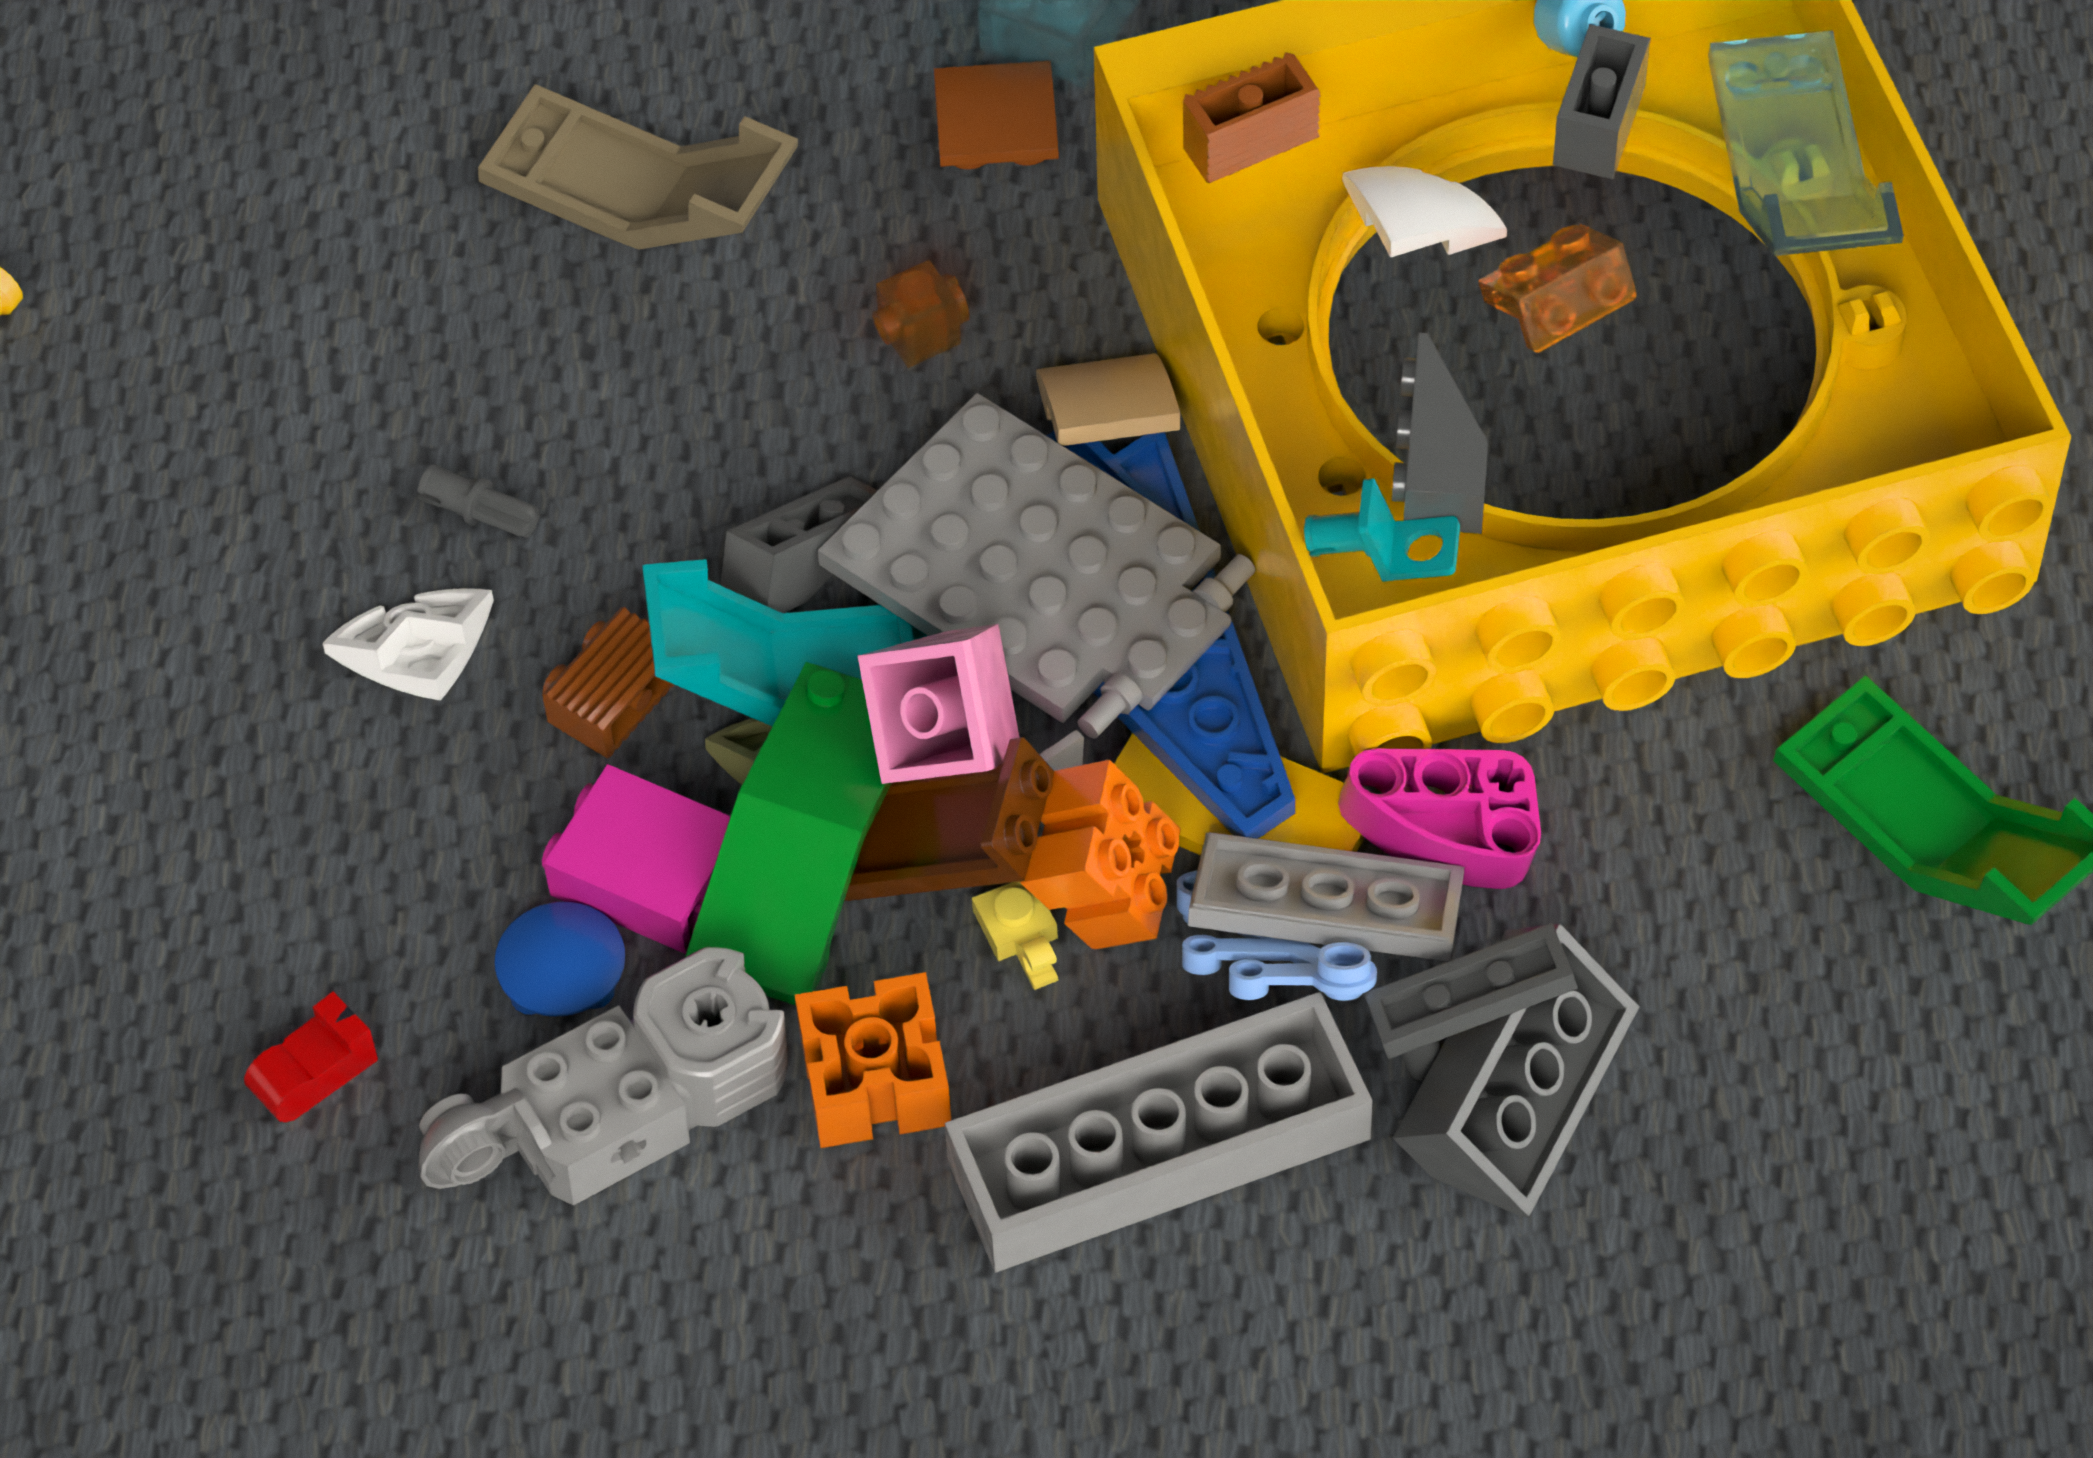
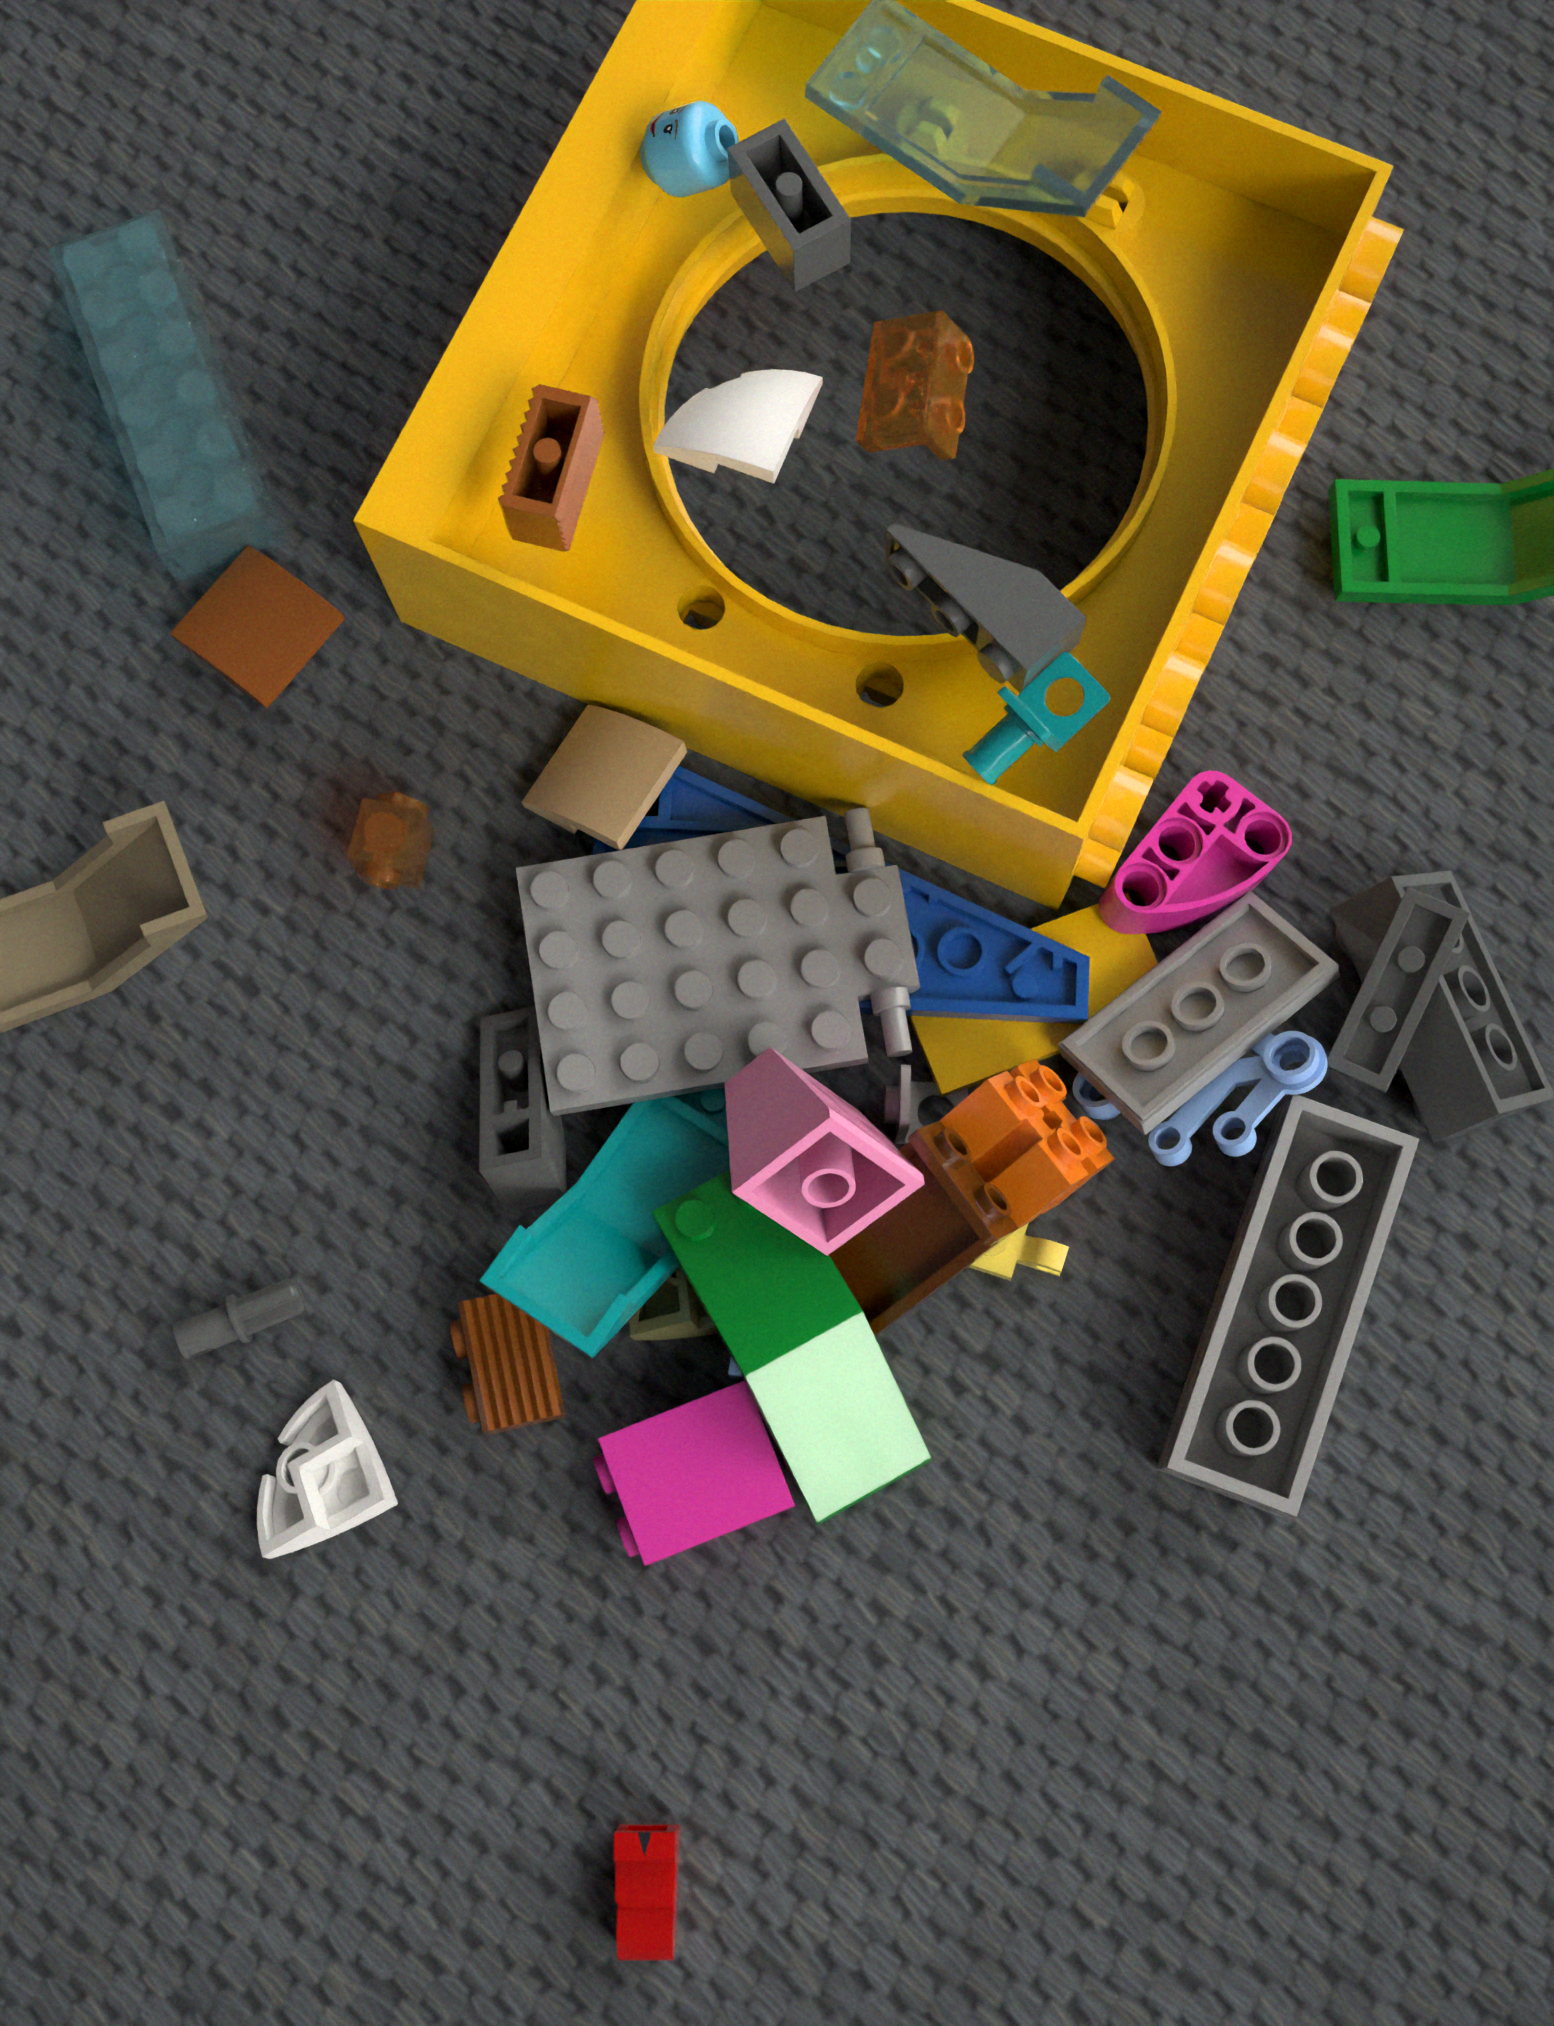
camera: 45 degrees left, 20 degrees up
(560, 959) = (721, 1611): blue dish -> none
(620, 1088) = (892, 1677): light grey brick -> none
(873, 1060) = (1081, 1449): orange brick -> none

